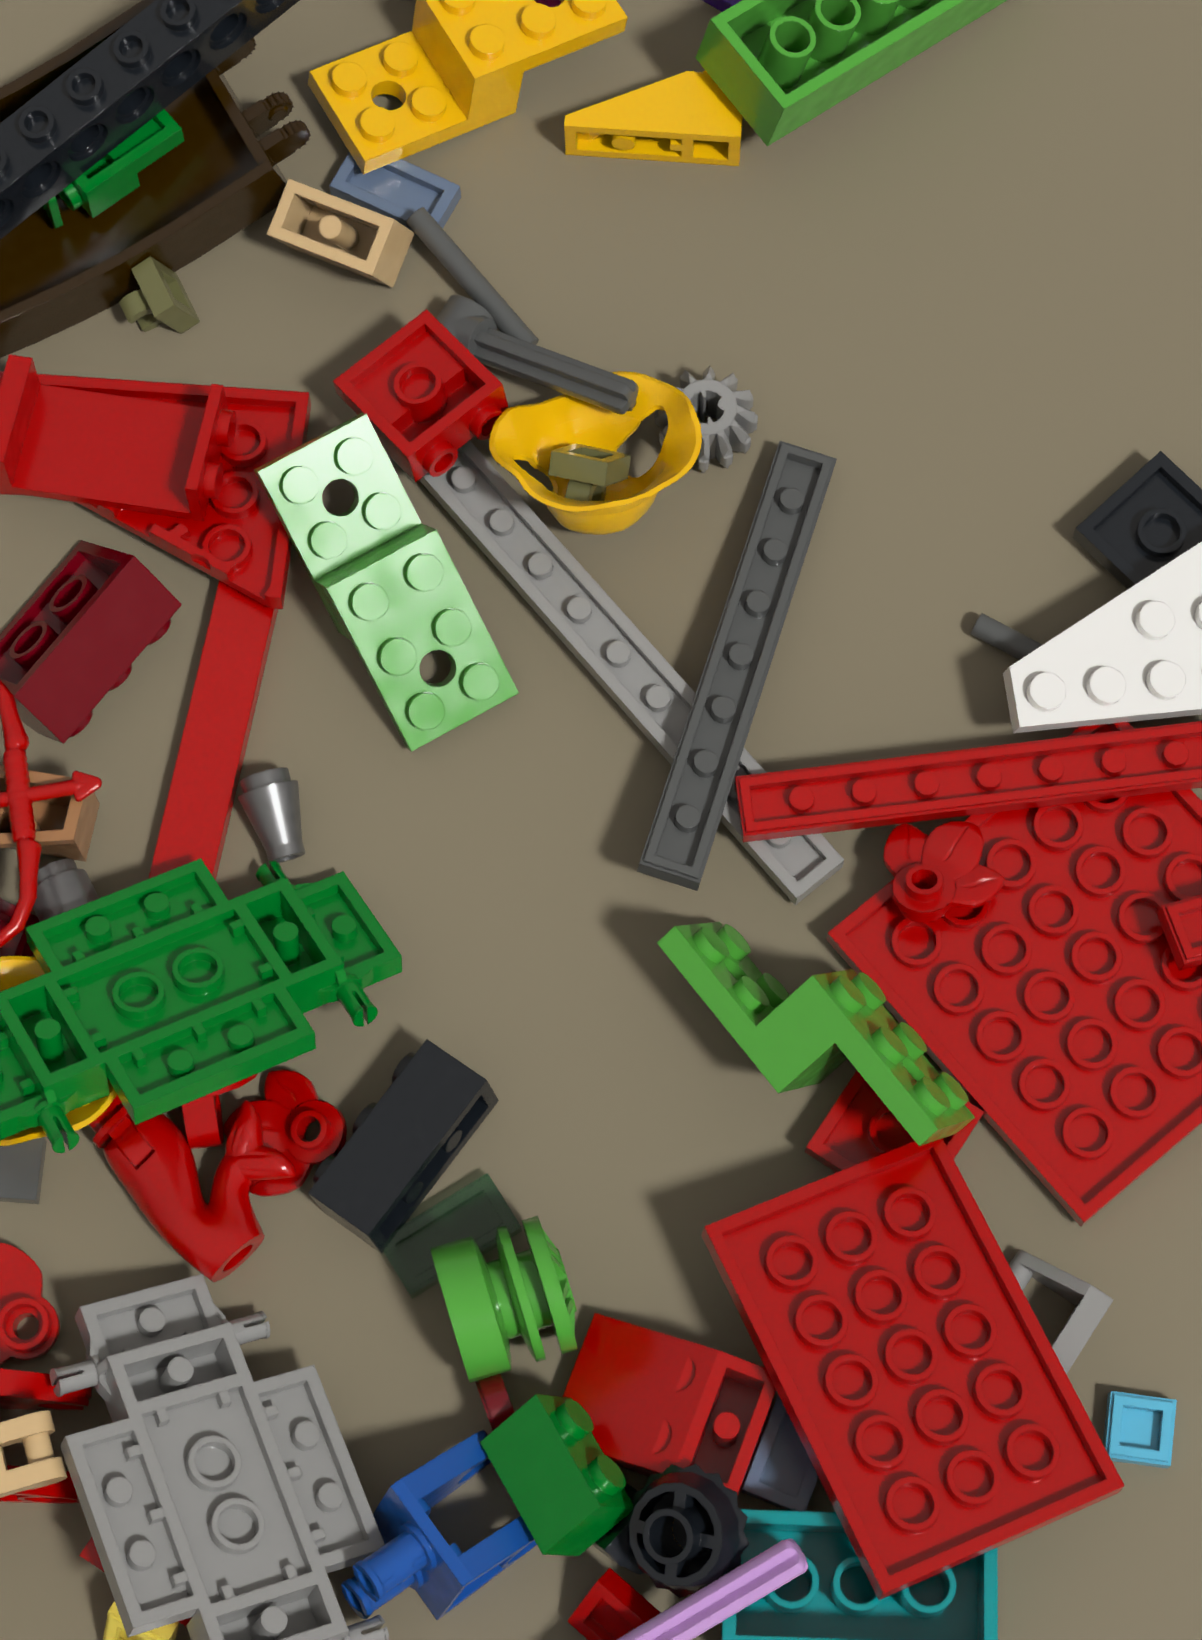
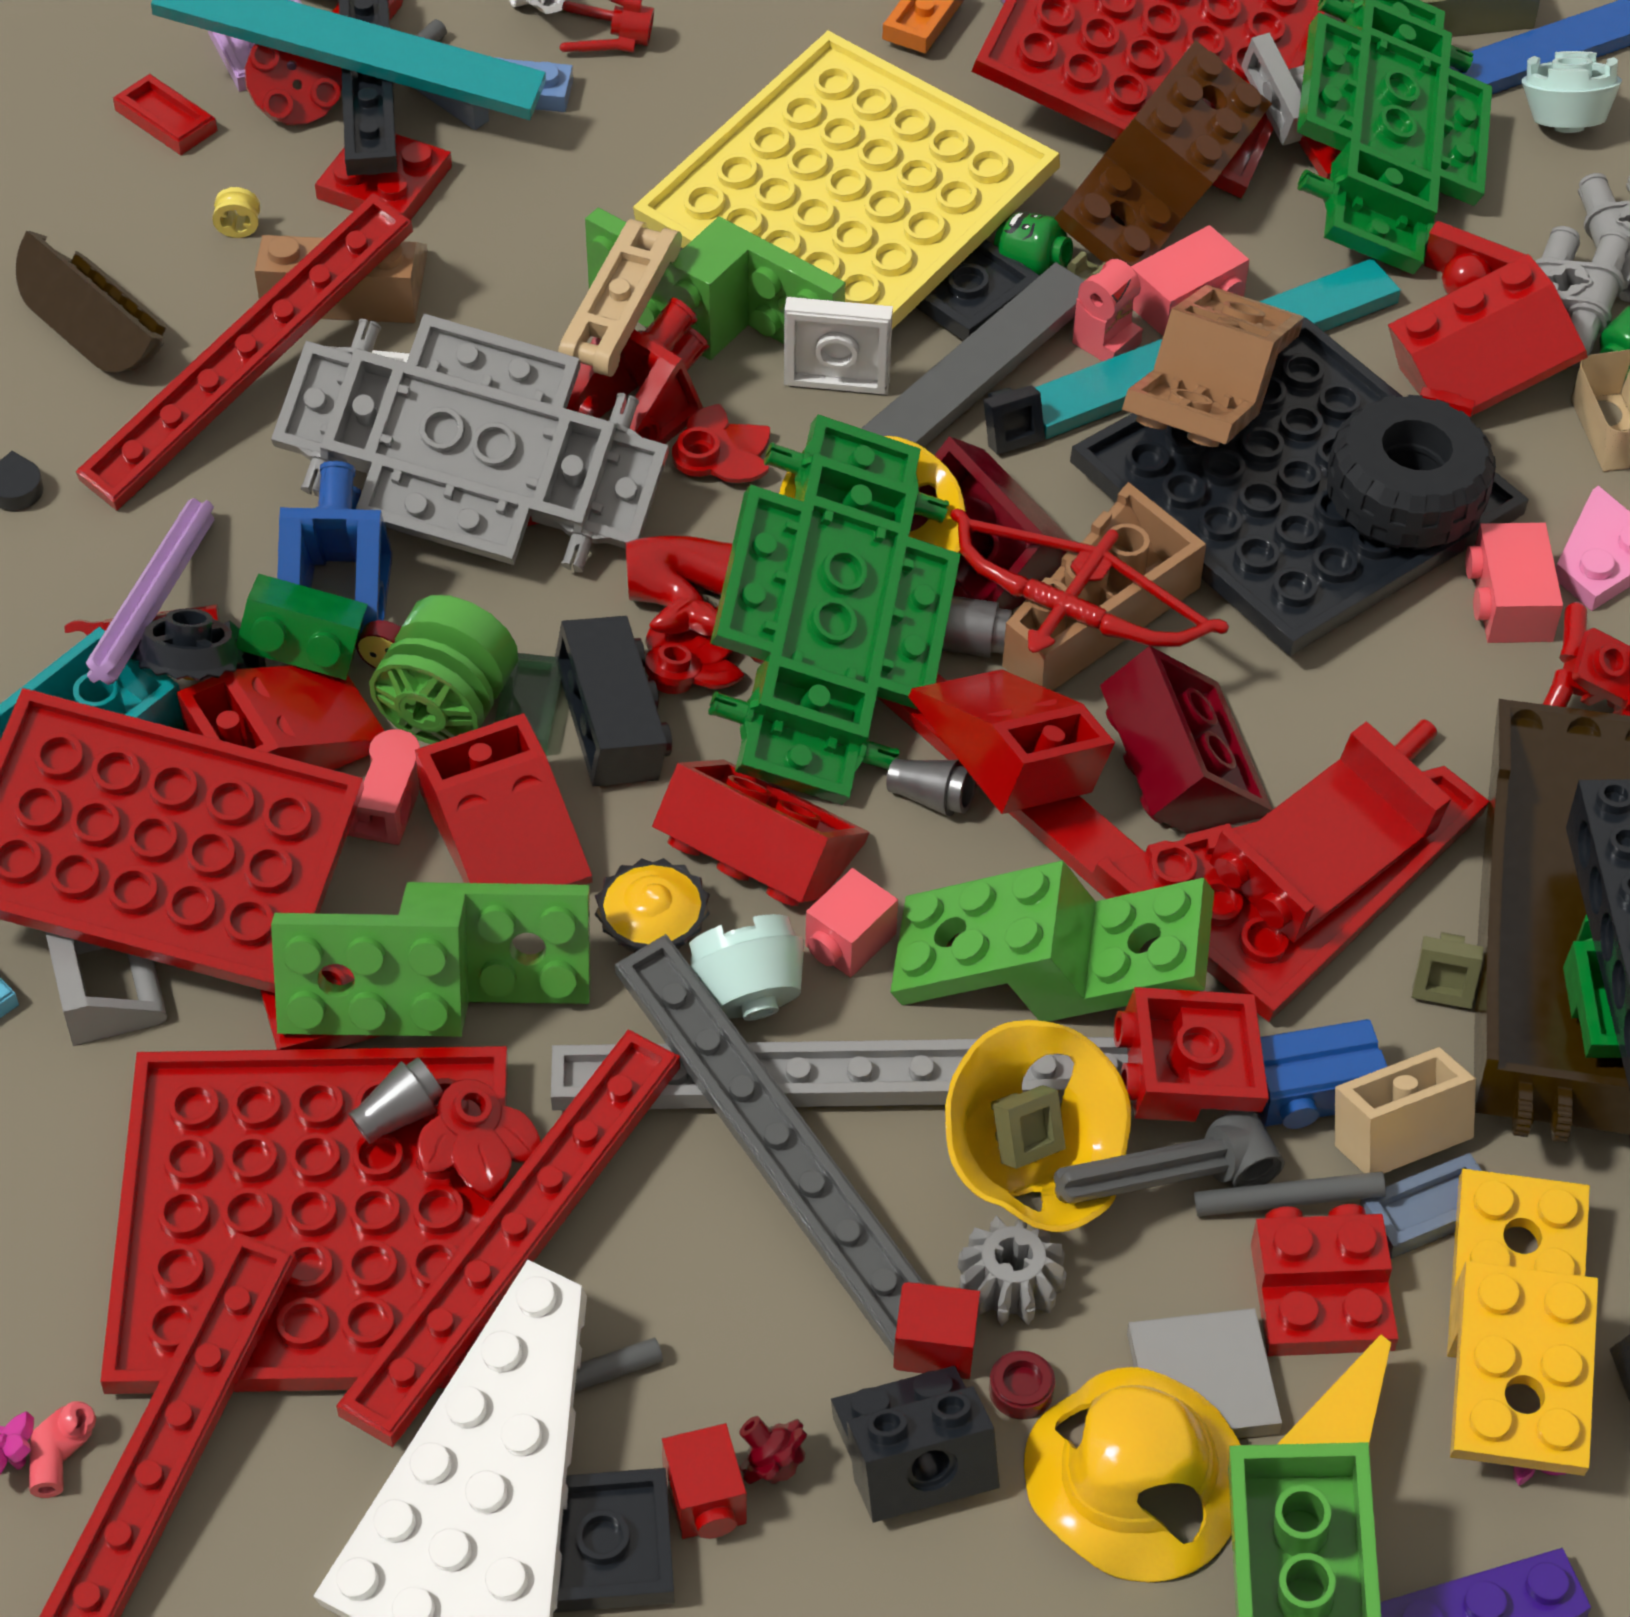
camera: 125 degrees right, 20 degrees down
(192, 754) = (1017, 737): none -> red slope
(335, 317) = (1309, 1065): none -> blue brick
(445, 907) = (757, 830): none -> red slope
(482, 766) = (851, 923): none -> coral brick
(529, 215) = (1323, 1281): none -> red plate
(598, 927) = (650, 902): none -> yellow piece
(602, 795) = (750, 967): none -> light aqua cone
(608, 1127) = (501, 807): none -> red slope
(648, 1261) = (388, 788): none -> coral leg
(677, 246) = (1218, 1358): none -> light grey tile
(770, 214) = (1134, 1437): none -> yellow piece
(786, 360) = (1021, 1384): none -> dark red tile
(802, 426) = (935, 1328): none -> red panel
(917, 363) = (917, 1443): none -> black brick
(960, 952) = (399, 1100): none -> flat silver cone
(995, 472) = (772, 1450): none -> dark red plant
(1060, 497) = (704, 1482): none -> red brick

